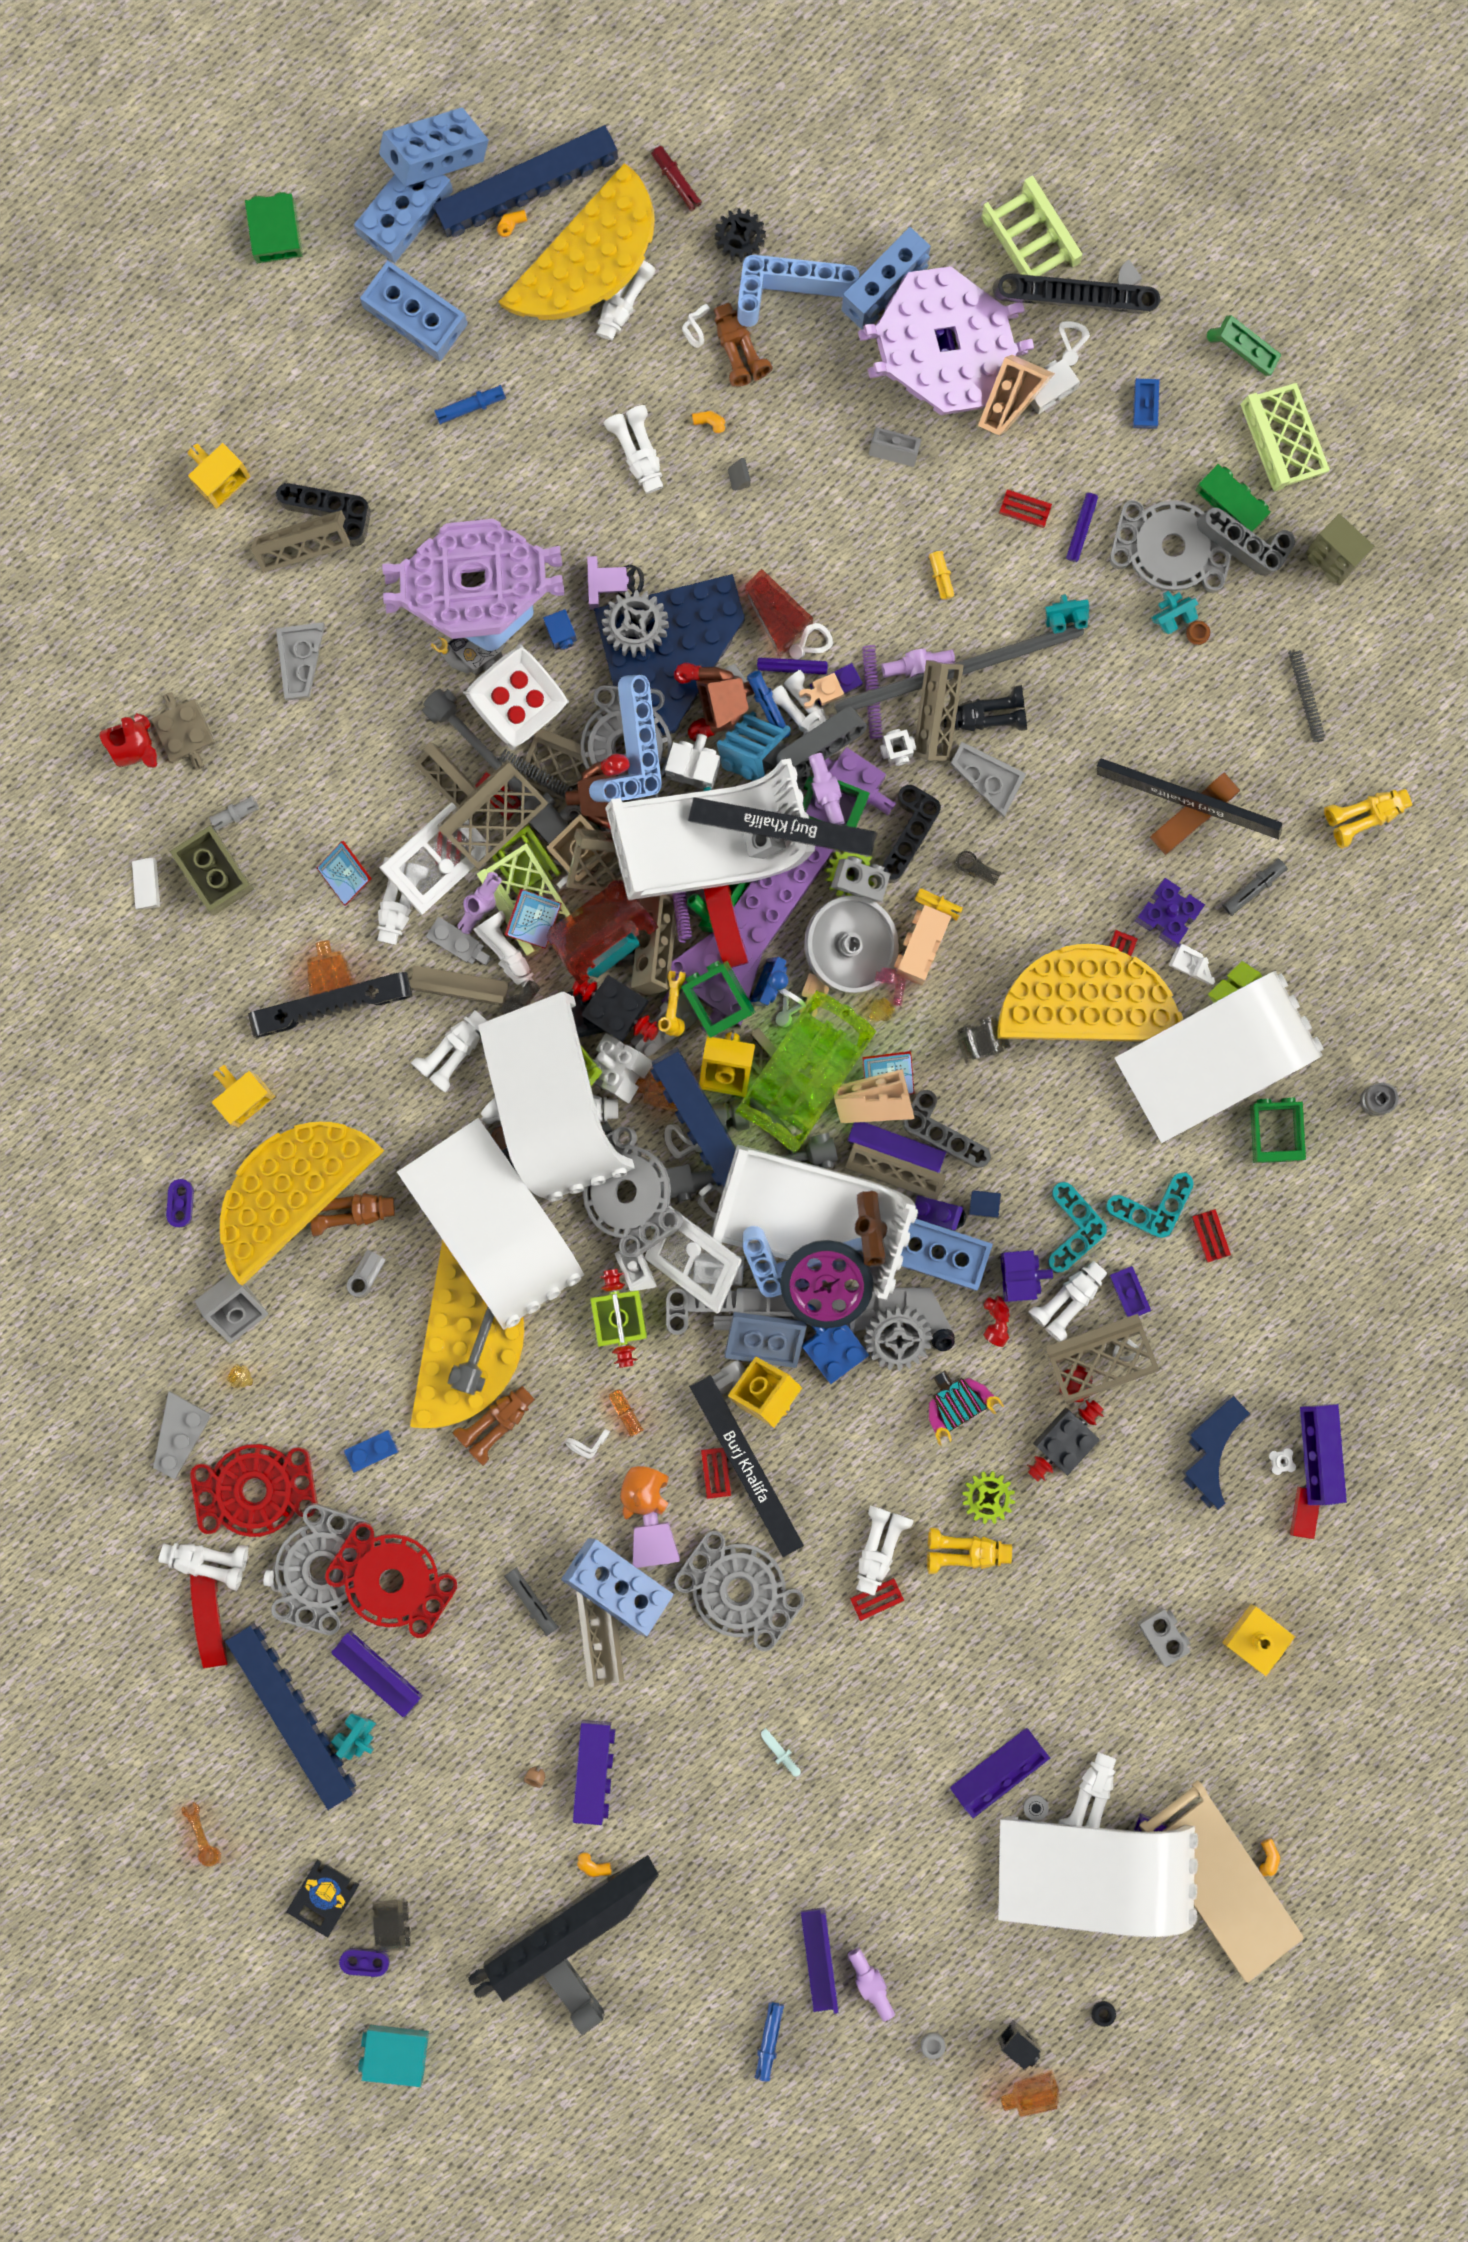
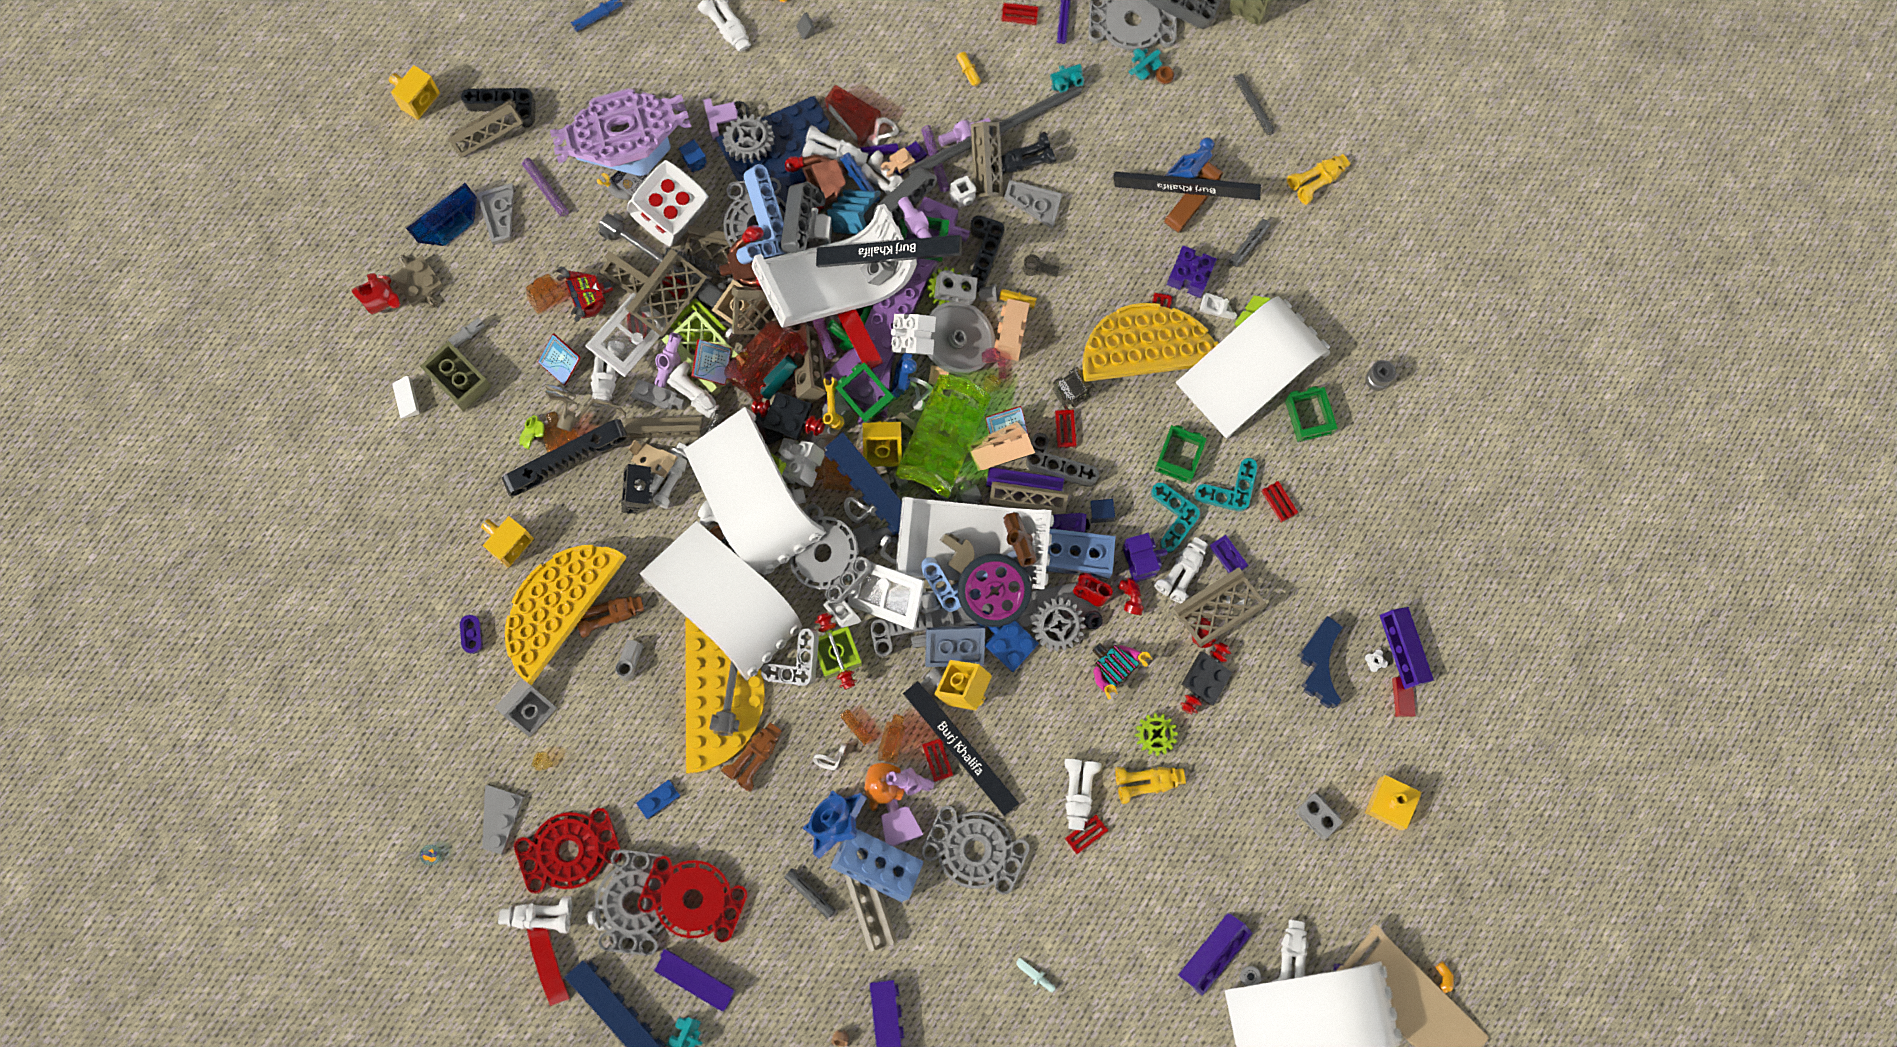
camera: 20 degrees left, 10 degrees down
(91, 1462) = (430, 855): none -> clear light blue tile
(230, 654) = (445, 217): none -> clear blue wedge
(295, 959) = (533, 428): none -> lime plate
(341, 780) = (544, 293): none -> clear orange torso
(343, 952) = (568, 417): none -> dark tan plant
(351, 603) = (542, 187): none -> medium lavender piece
(391, 790) = (585, 292): none -> torso
(401, 1074) = (632, 499): none -> black brick
(440, 1025) = (653, 458): none -> tan piece
(572, 1328) = (801, 667): none -> light grey beam
(576, 1525) = (834, 821): none -> blue plate
(661, 1447) = (891, 745): none -> clear orange torso
(676, 1496) = (909, 781): none -> lavender pin
(678, 748) = (800, 201): none -> dark grey beam
(745, 1279) = (929, 602): none -> light grey piece
(753, 659) = (841, 147): none -> white piece
(793, 934) = (913, 334): none -> white brick
(798, 1228) = (963, 553): none -> dark tan brick
(903, 890) = (989, 293): none -> light grey piece
(948, 1301) = (1093, 590): none -> red piece
(959, 1108) = (1066, 444): none -> red tile
(1089, 1173) = (1175, 471): none -> green window
(1202, 766) = (1191, 163): none -> blue plate

